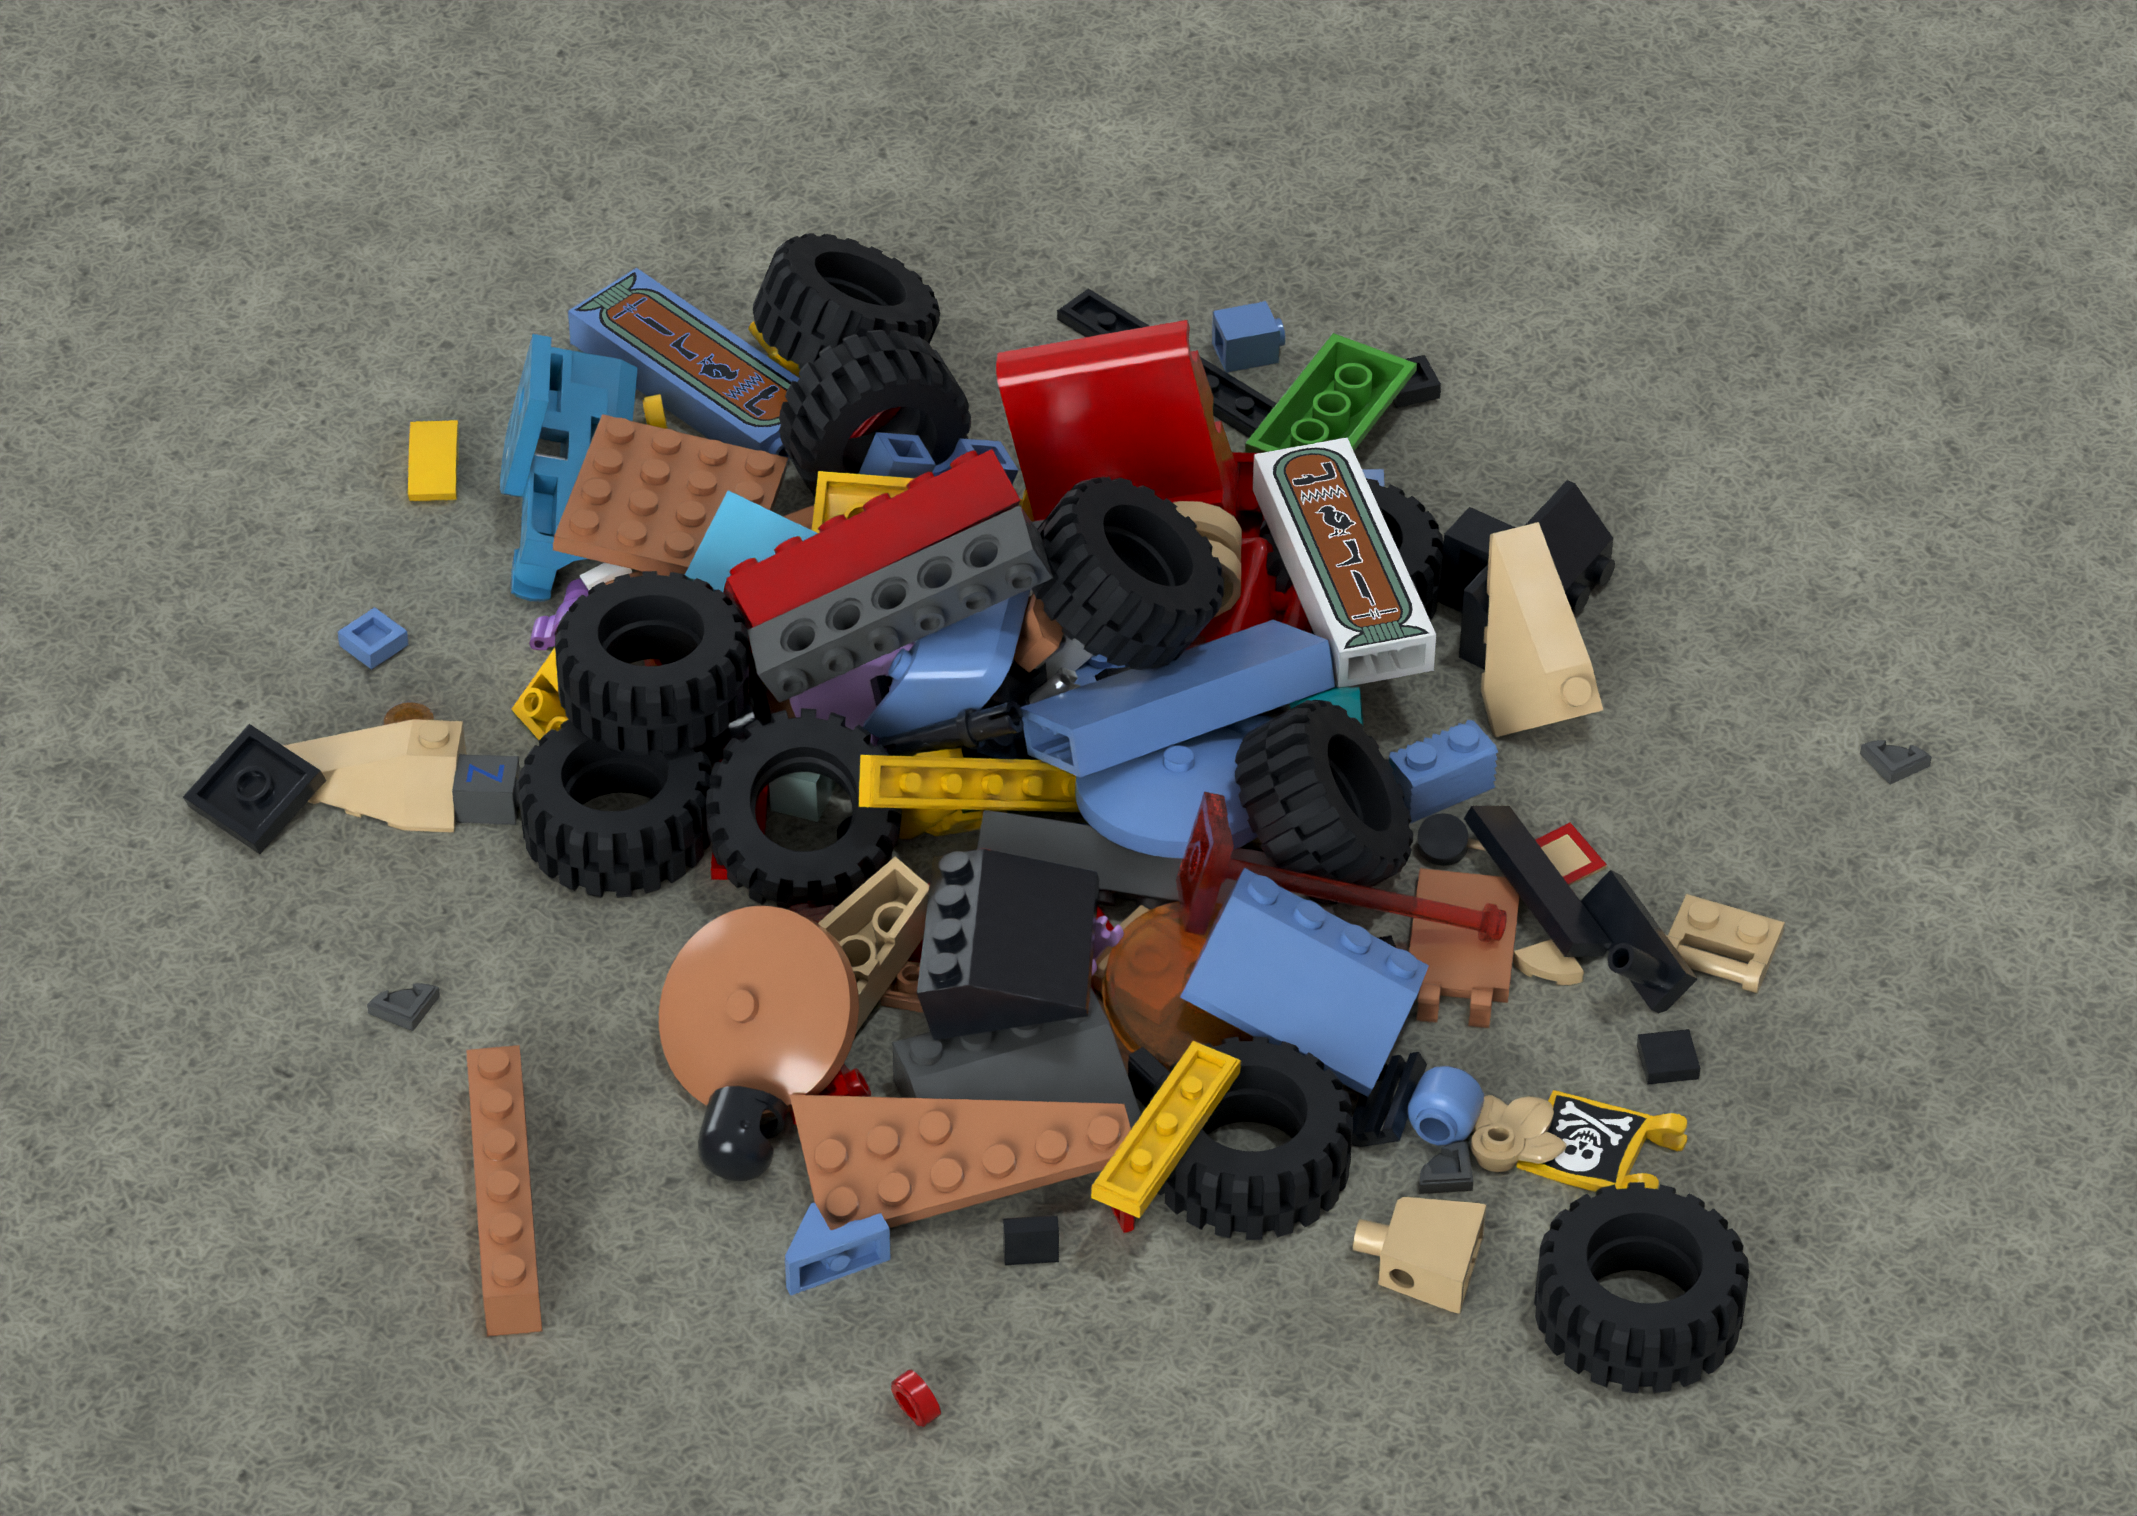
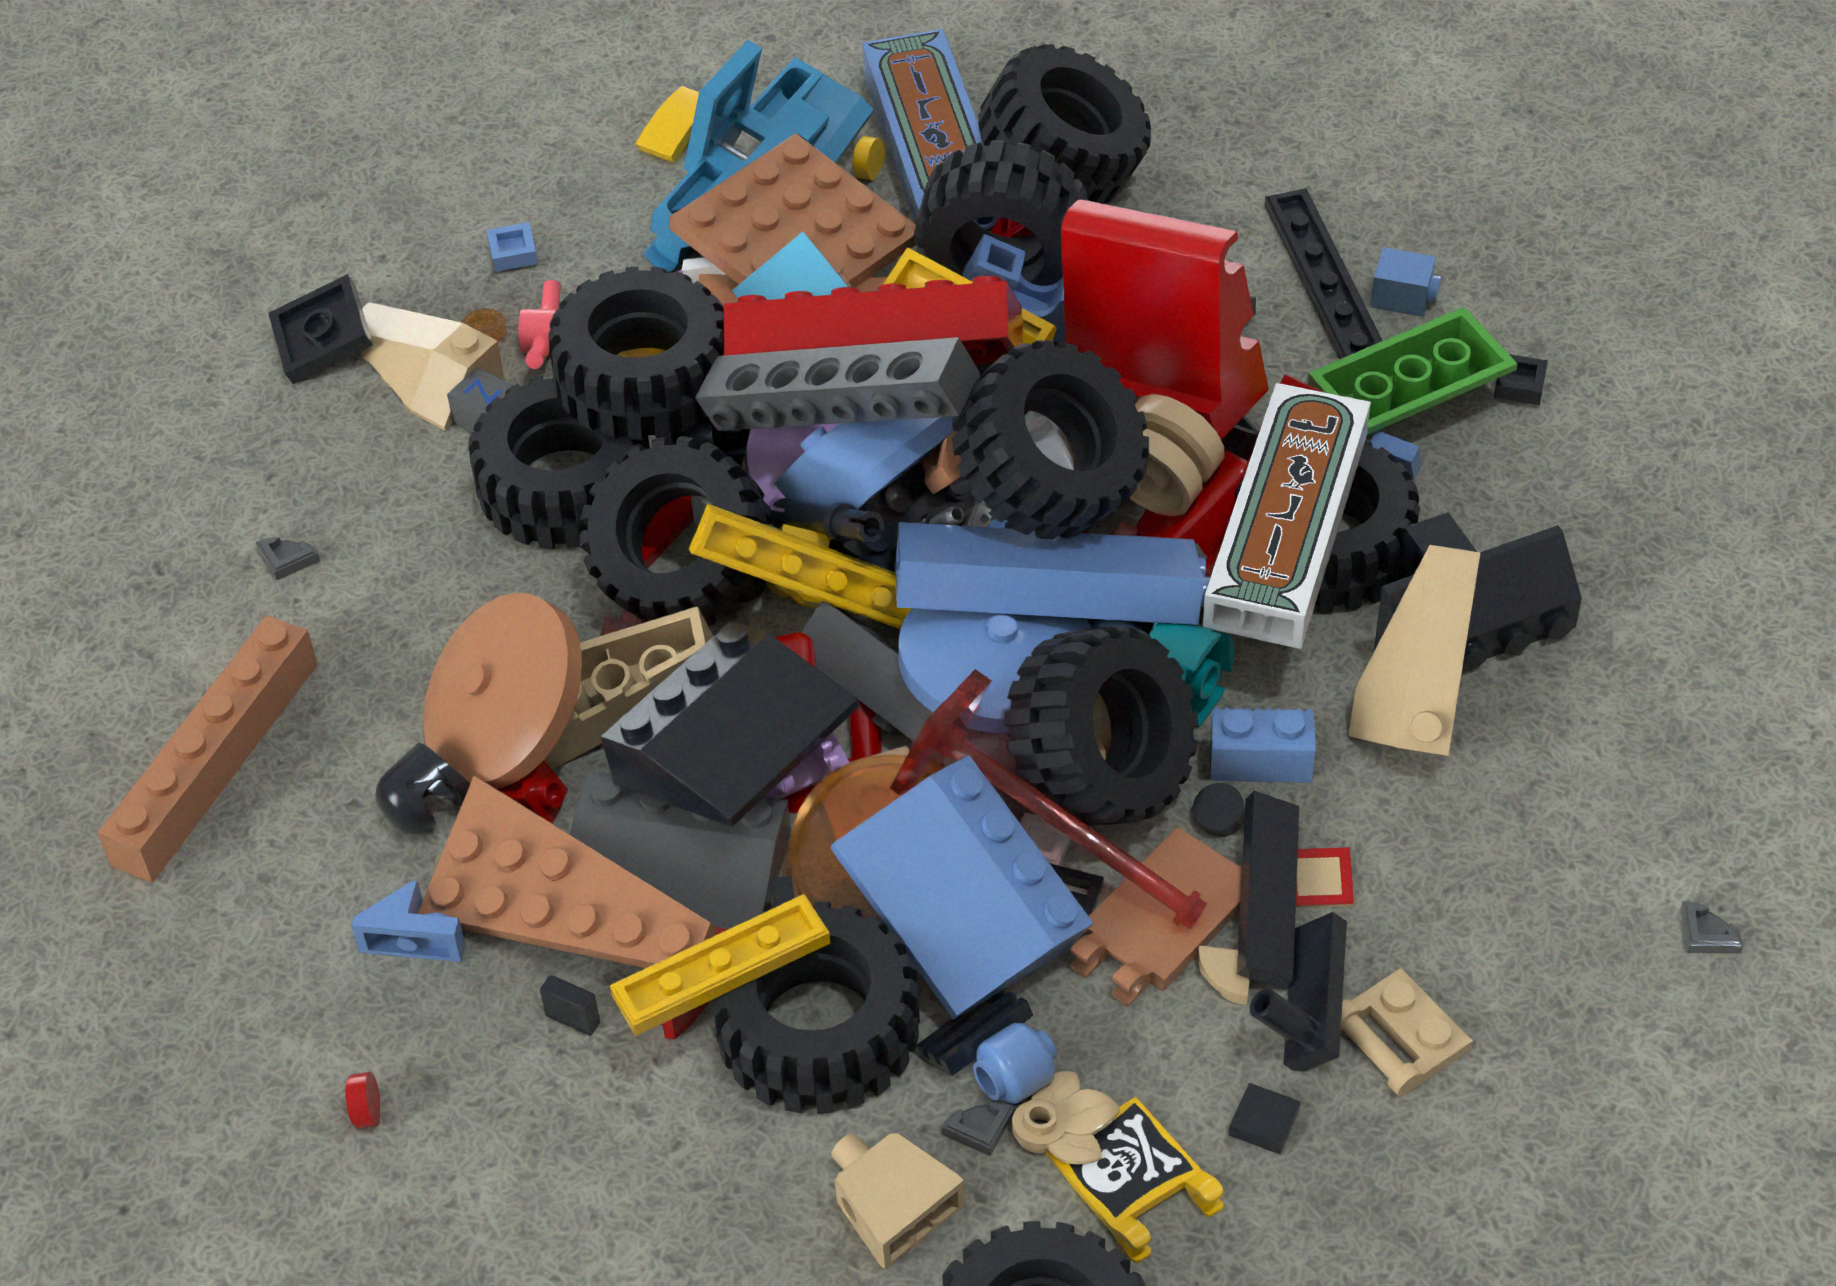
camera: 35 degrees right, 5 degrees up
(479, 698) = (535, 326): none -> coral piece

